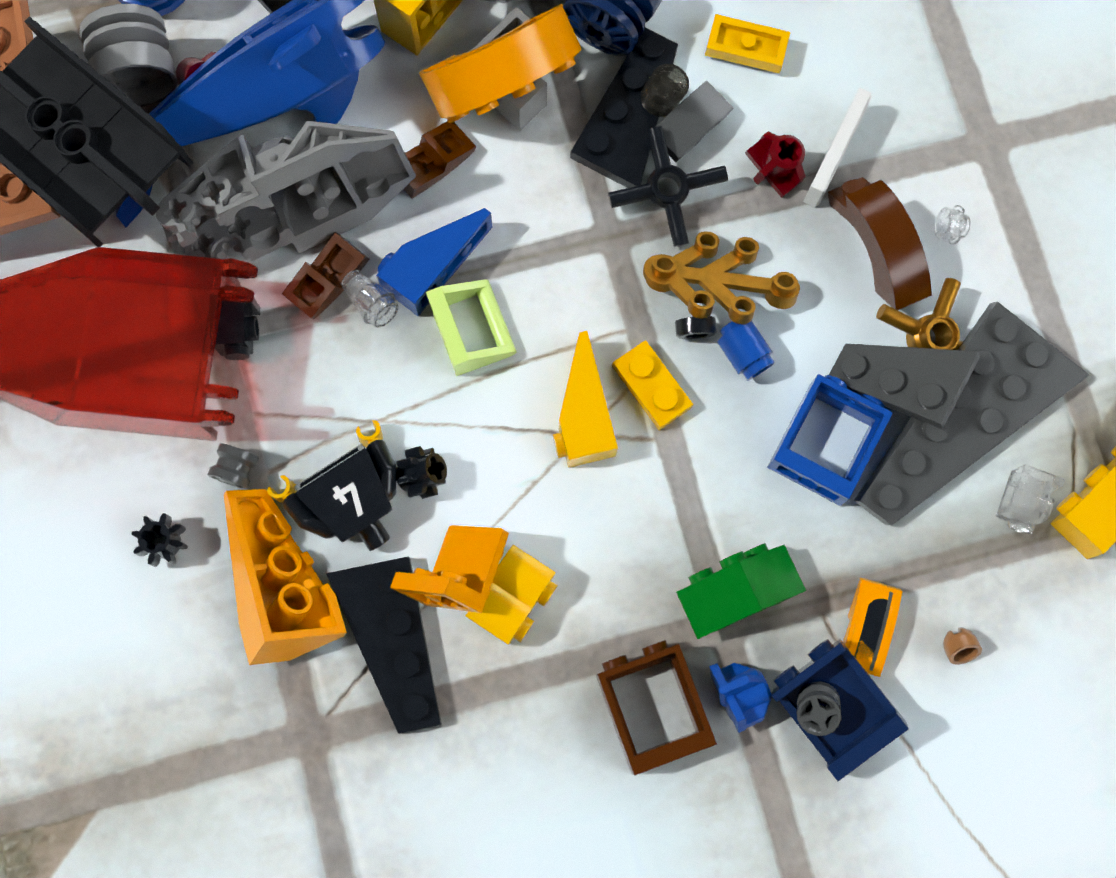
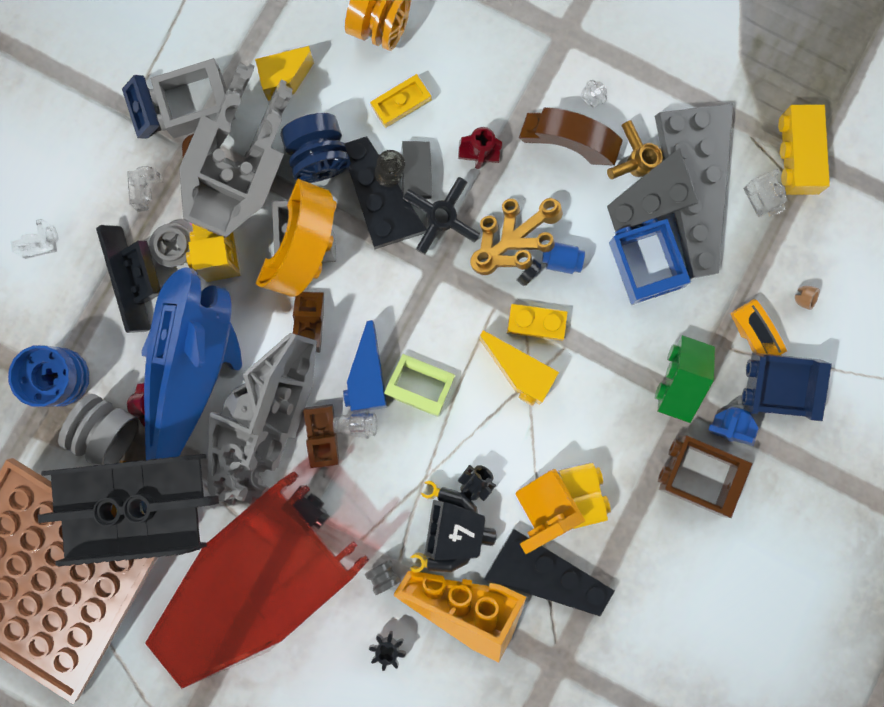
camera: 40 degrees left, 5 degrees up
(818, 719) = (779, 403): dark grey wheel -> none
(838, 147) = (501, 110): white tile -> none

